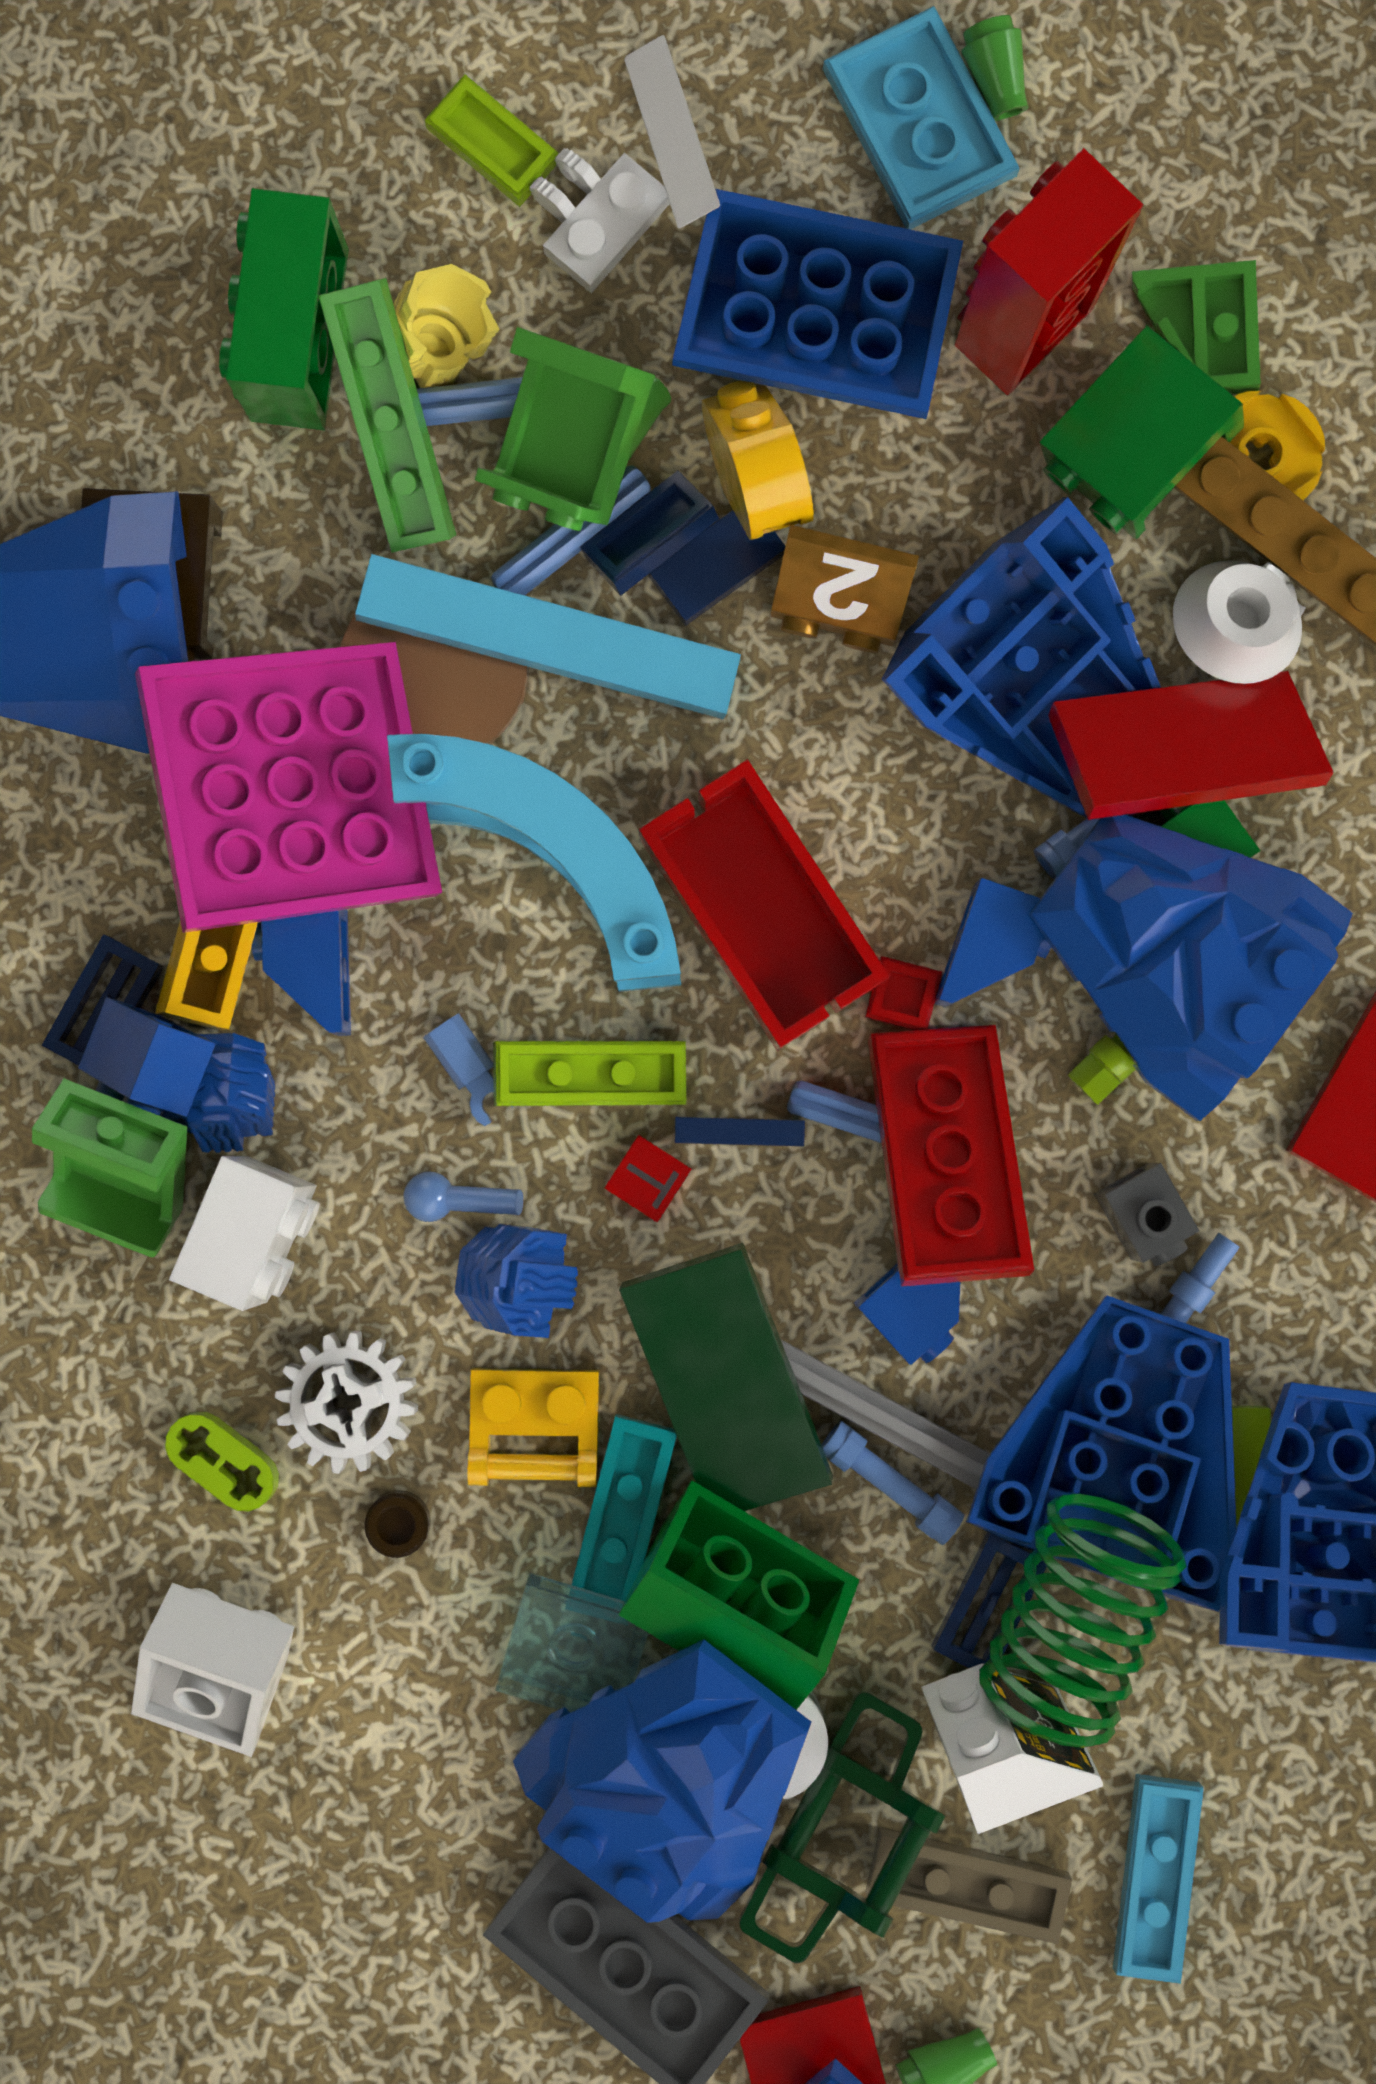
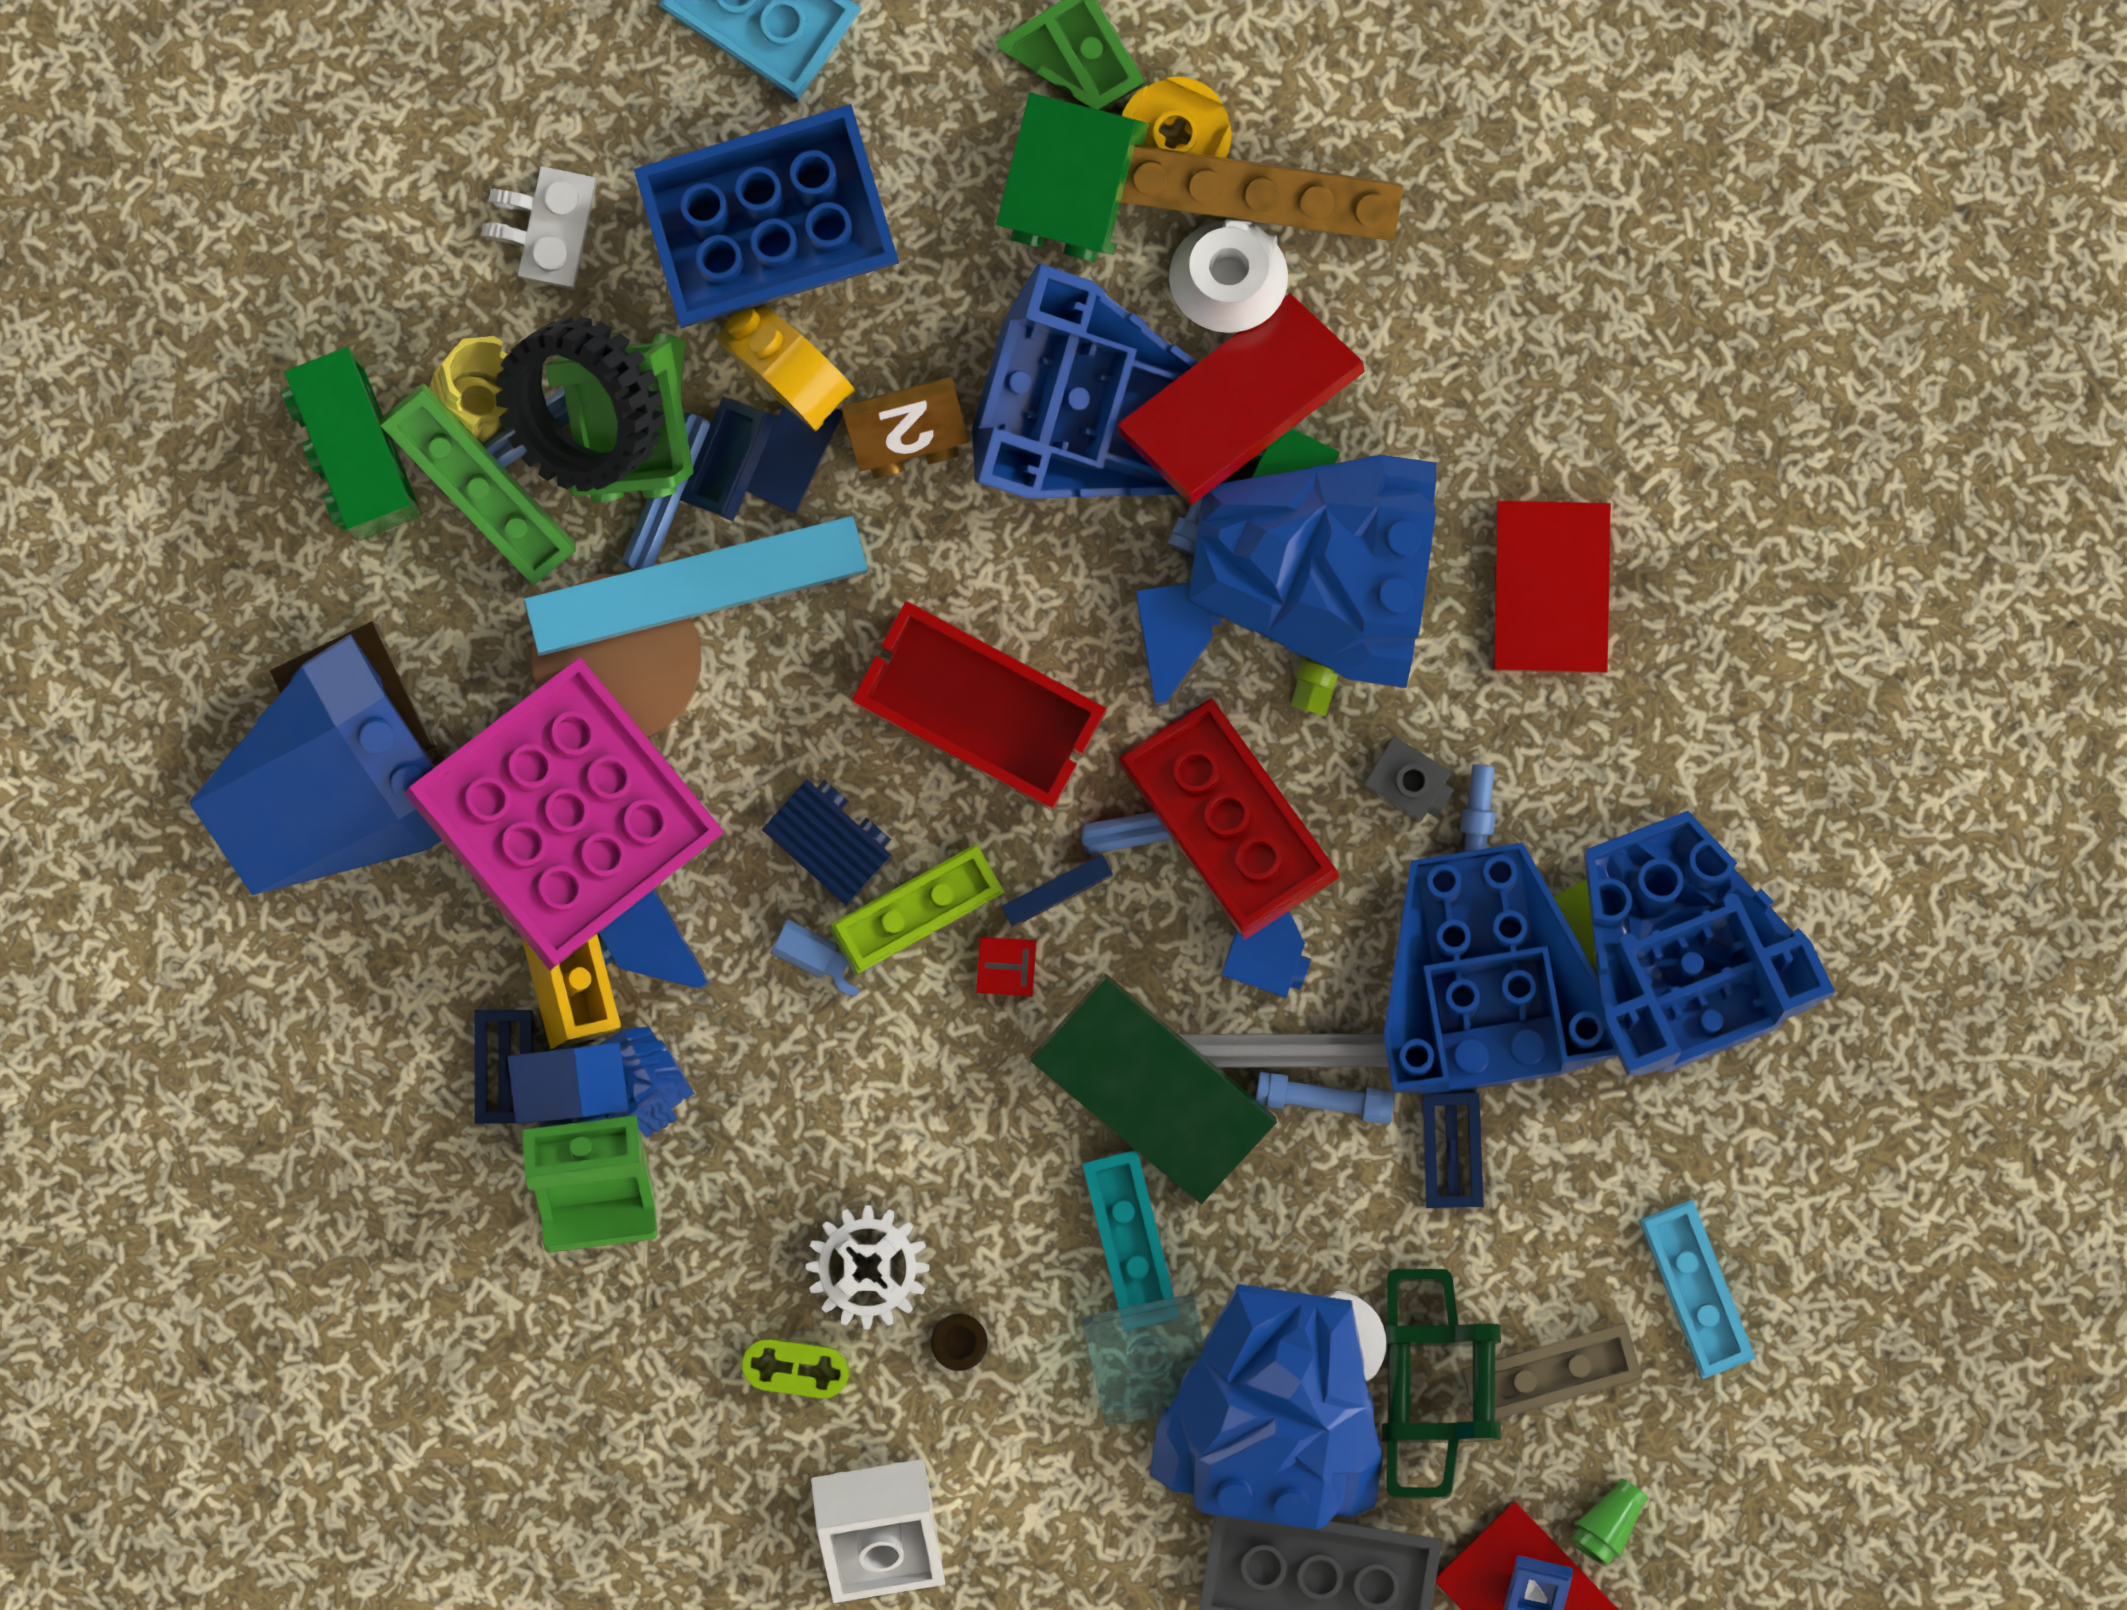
camera: 25 degrees left, 0 degrees up
(245, 1233) = (721, 1176): white brick -> none
(432, 1197) = (845, 1074): medium blue bar -> none
(491, 139) = (428, 211): lime tile -> none
(515, 1279) = (946, 1100): blue hair -> none
(533, 1405) = (1015, 1191): yellow plate -> none
(534, 807) = (789, 732): medium azure fence -> none
(540, 958) = (829, 841): none -> dark blue brick
(581, 392) = (622, 381): none -> black tyre
(671, 132) = (571, 133): white sticker -> none
(743, 1592) = (1249, 1236): green brick -> none
(906, 996) = (1129, 713): red tile -> none
(999, 1764) = (1514, 1242): white slope -> none
(1044, 268) = (929, 107): red brick -> none
(1057, 1673) = (1533, 1053): green piece -> none

